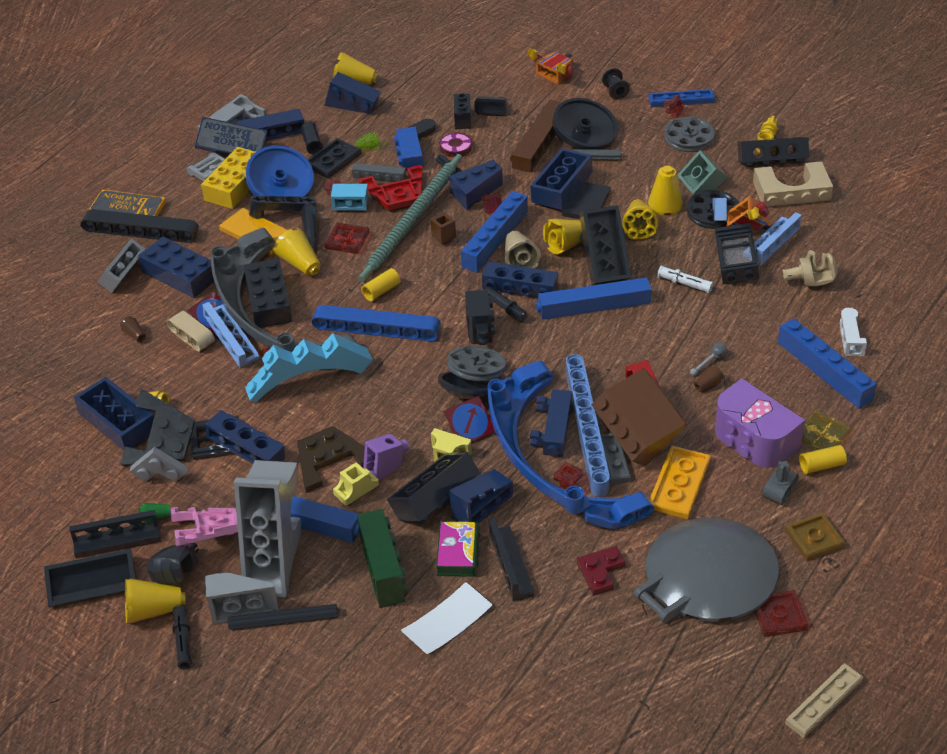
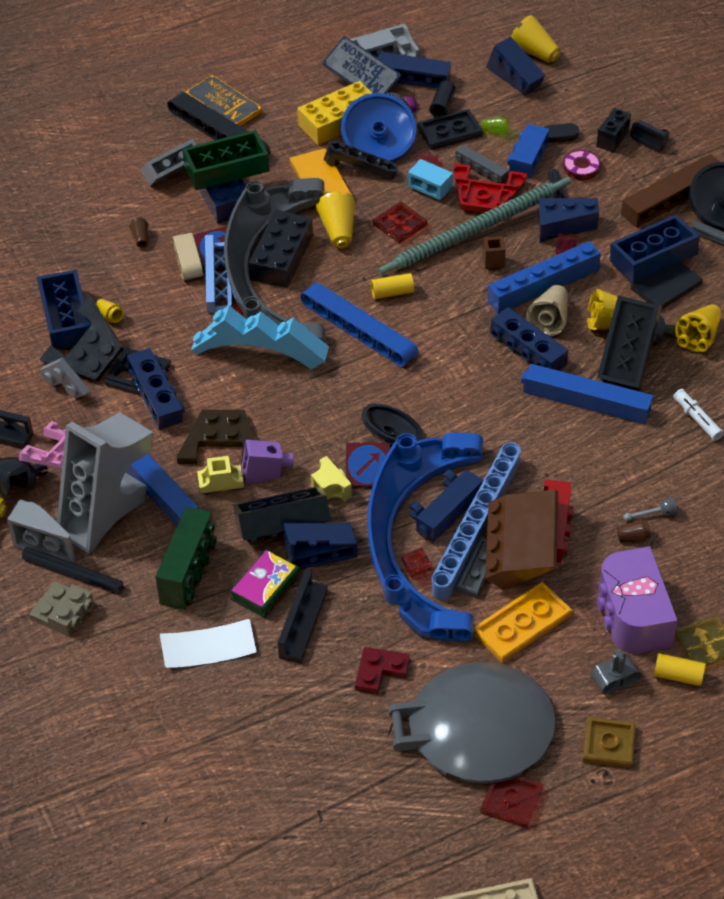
camera: 30 degrees right, 5 degrees up
(162, 510) = (38, 419): green cone -> none
(177, 241) = (226, 160): none -> dark green brick
(205, 167) = (320, 89): light grey plate -> none
(299, 650) = (63, 608): none -> dark tan plate
(310, 225) = (372, 197): black piece -> none
(479, 317) = (454, 362): black hinge -> none
(489, 365) = (418, 409): dark grey wedge -> none
(509, 306) = (498, 364): black axle -> none

